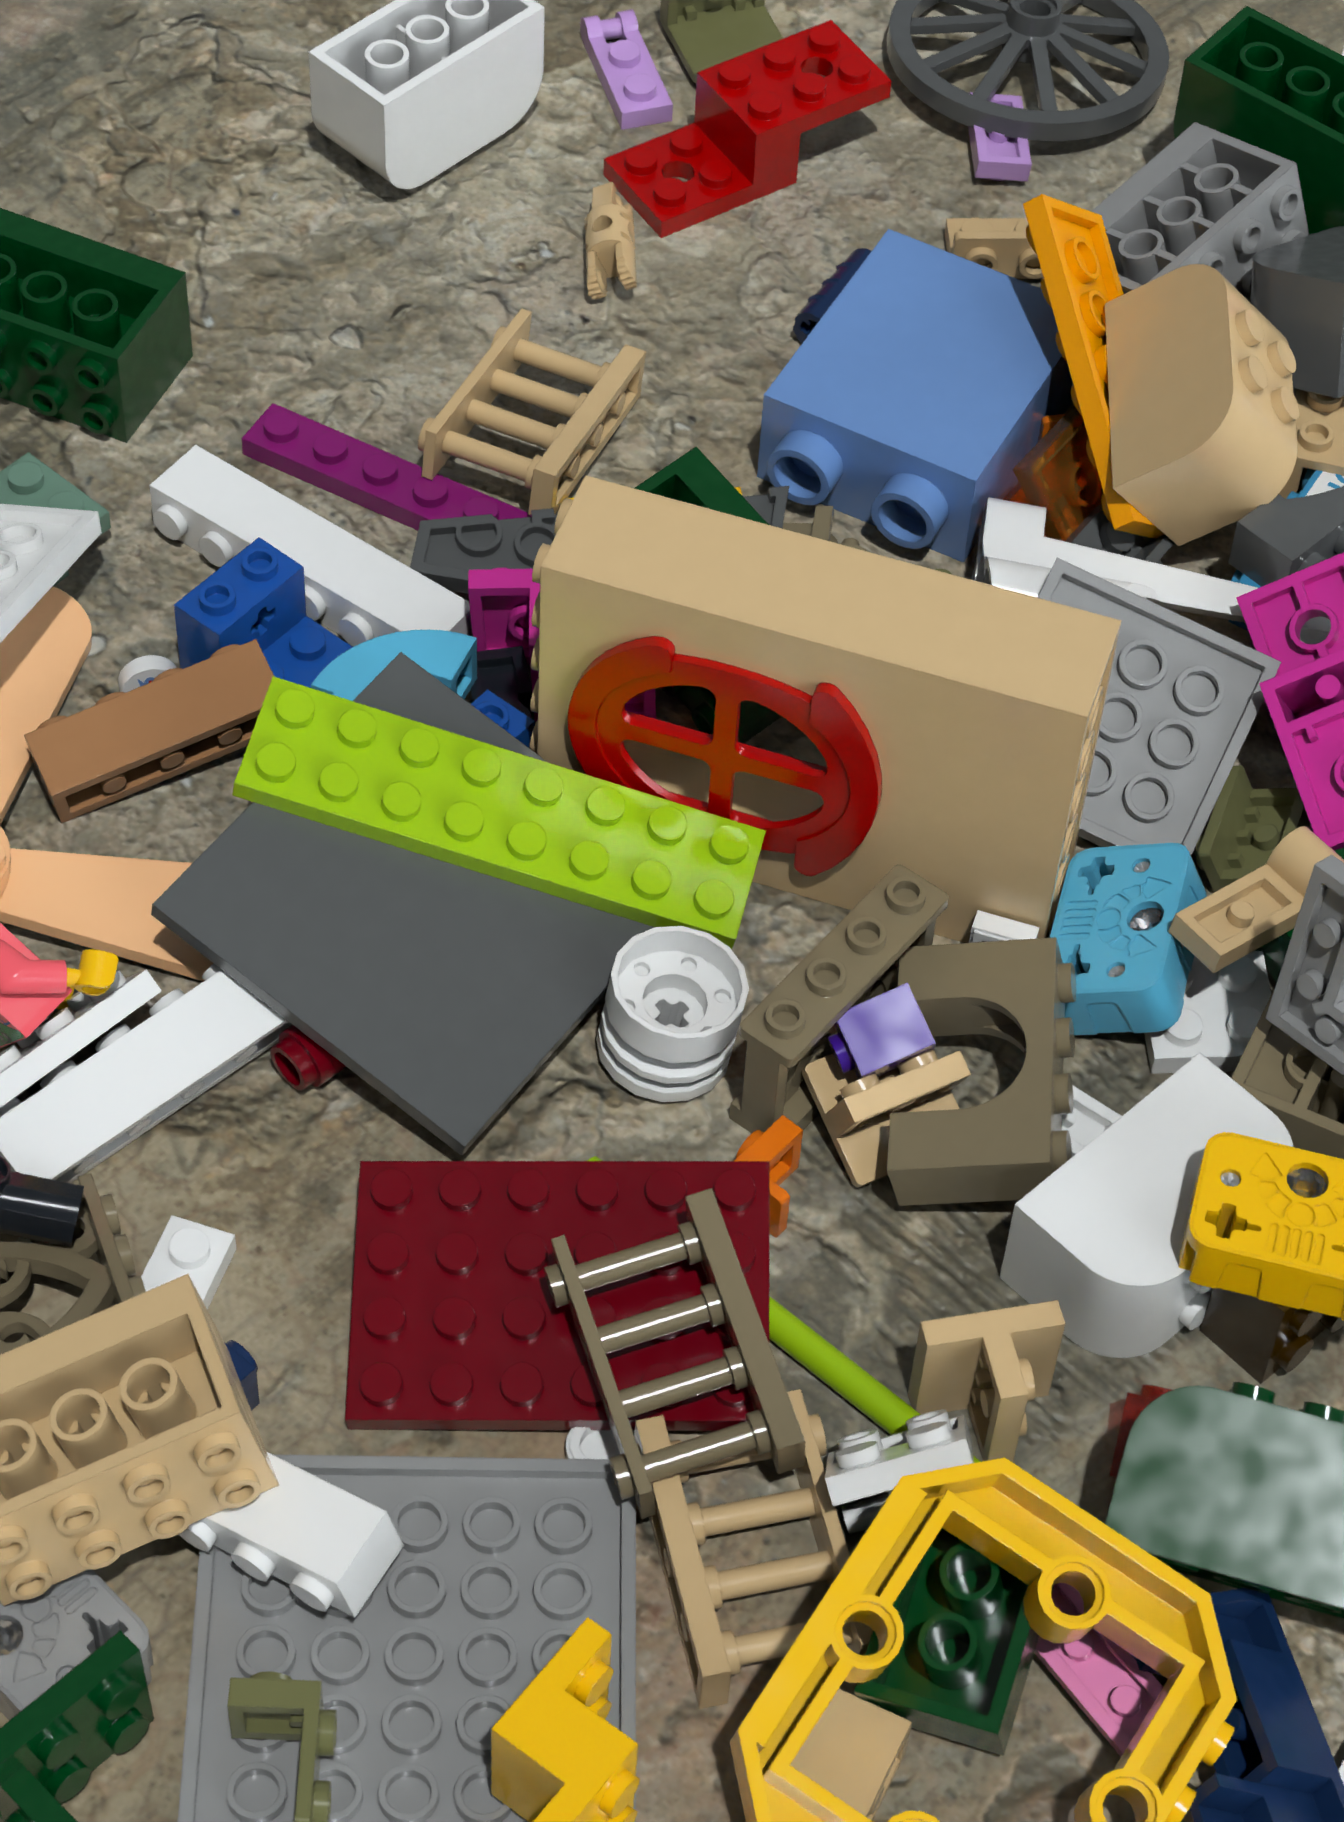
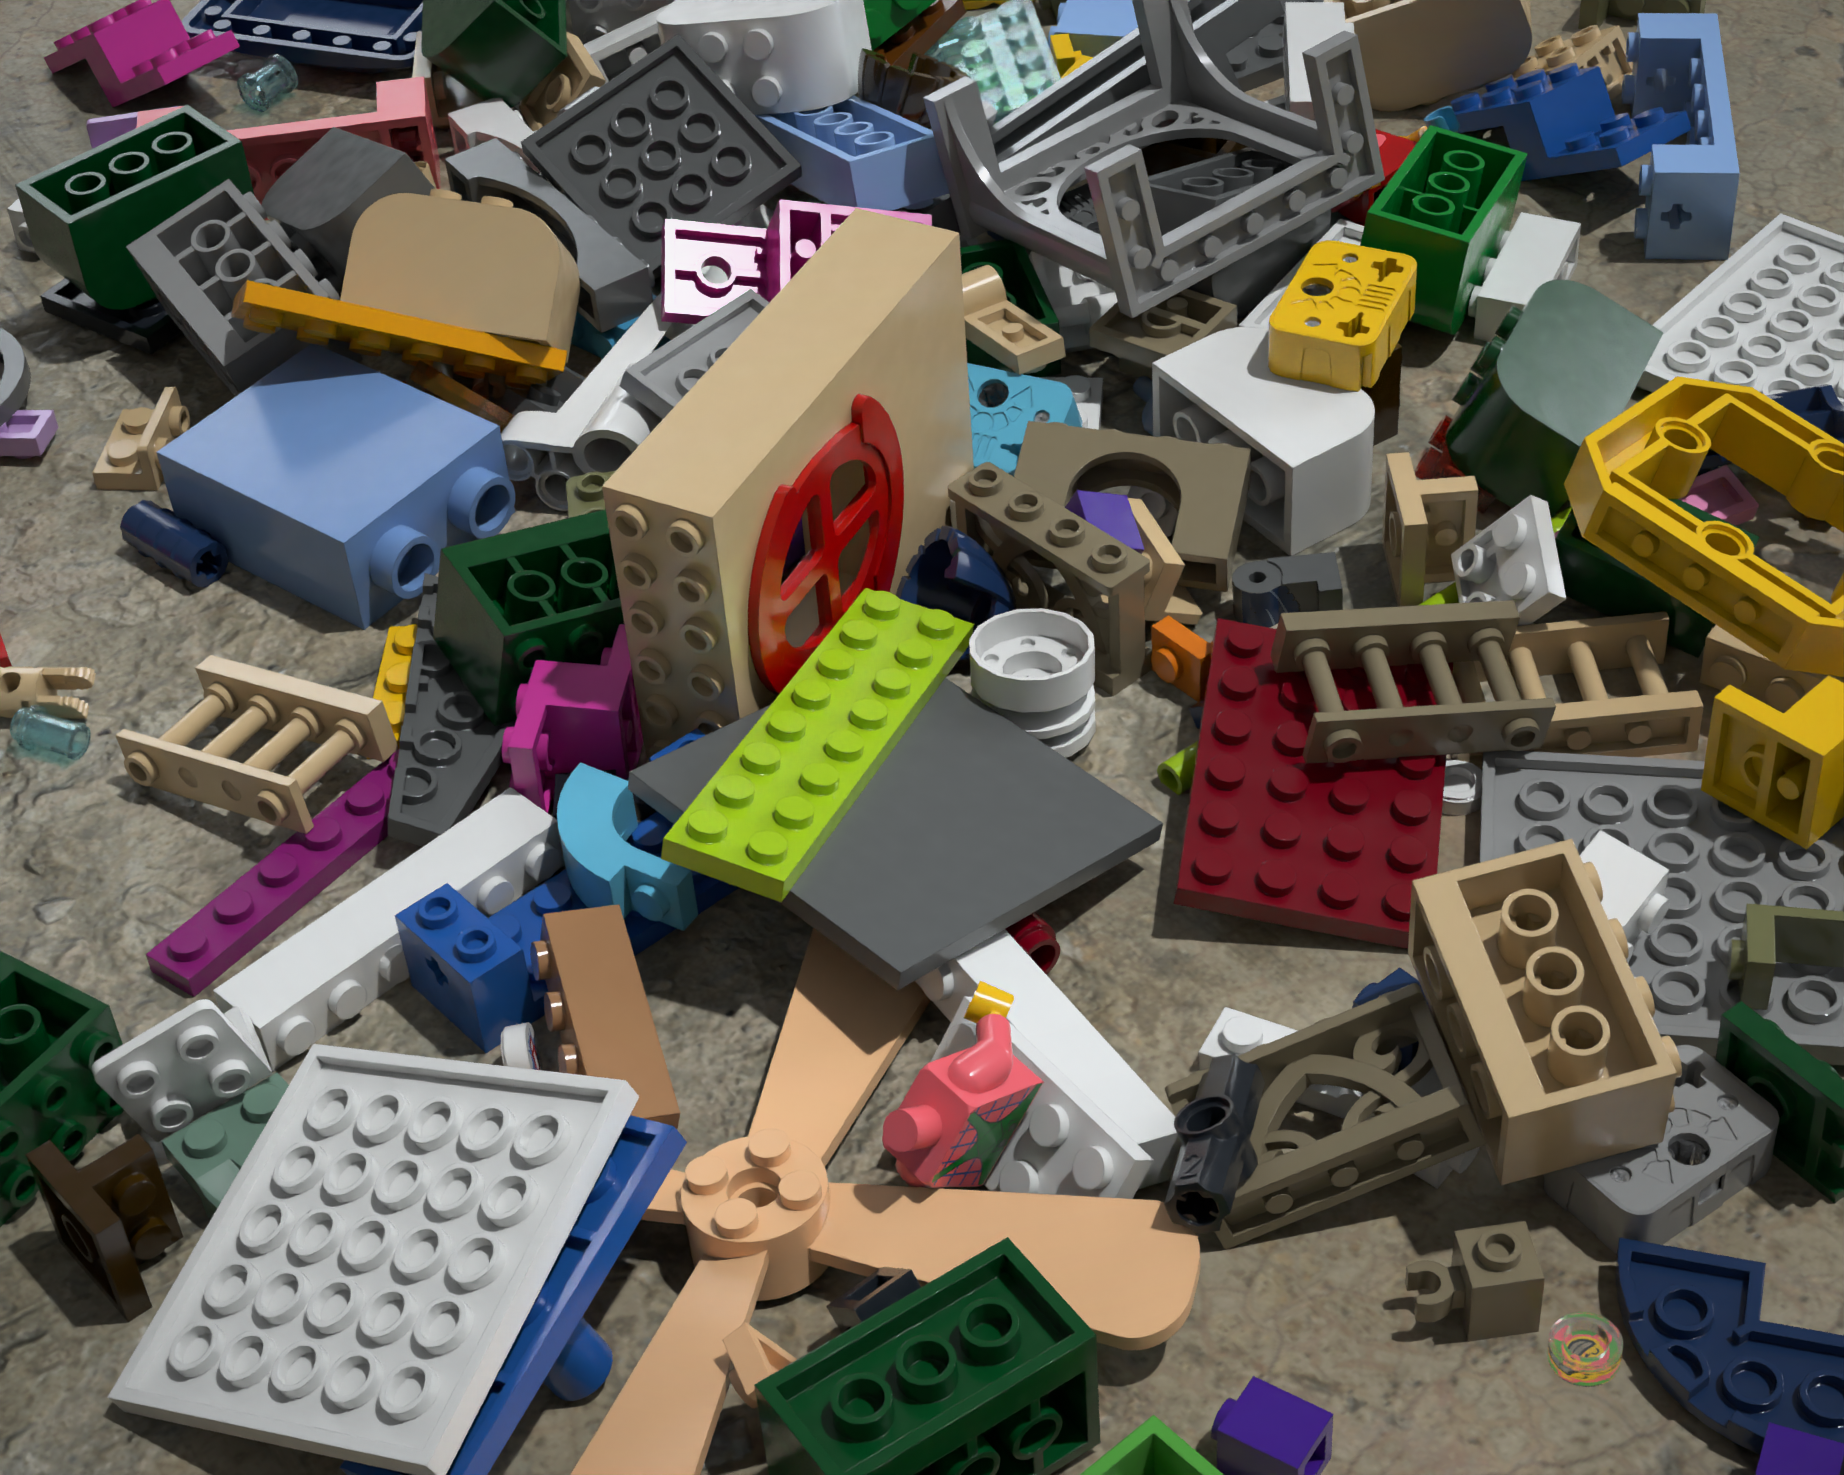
camera: 75 degrees left, 10 degrees down
(90, 452) = (183, 1067): none -> white bracket
(564, 265) = (37, 728): none -> clear light blue pin
(792, 925) = (957, 578): none -> dark blue hair
(908, 1268) = (1286, 586): none -> dark grey leg

